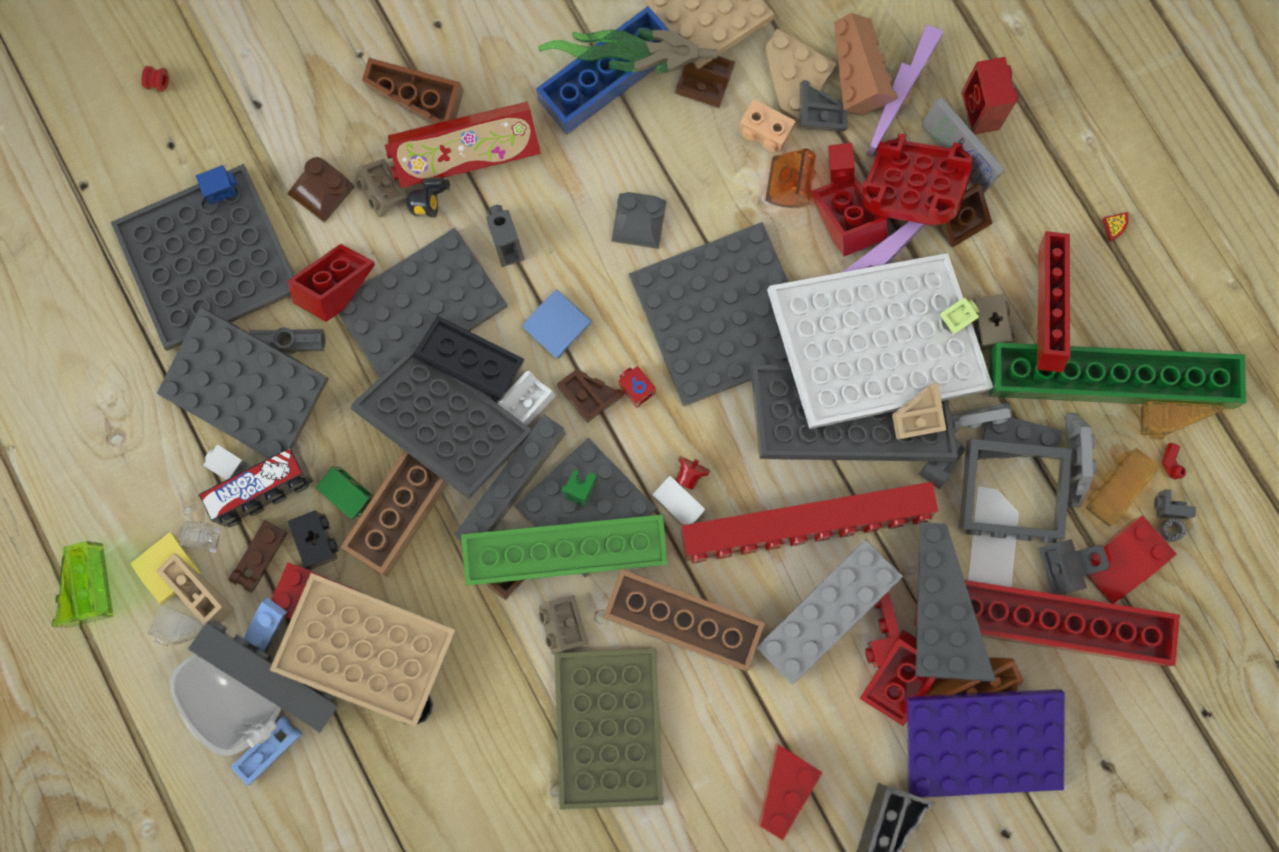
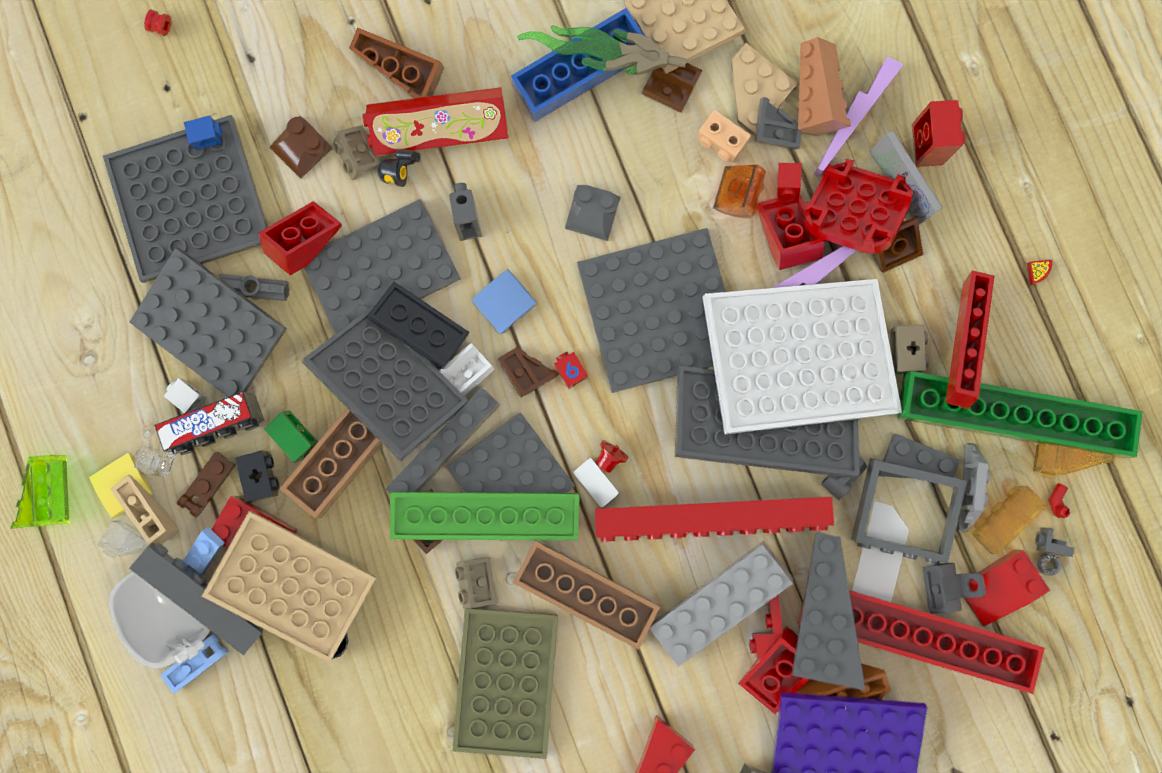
camera: 10 degrees right, 5 degrees up
(578, 490) = (505, 464): green hinge -> none
(920, 414) = (830, 432): tan wing -> none
(960, 315) = (880, 341): yellowish green bracket -> none
(976, 417) = (882, 437): light grey hinge -> none

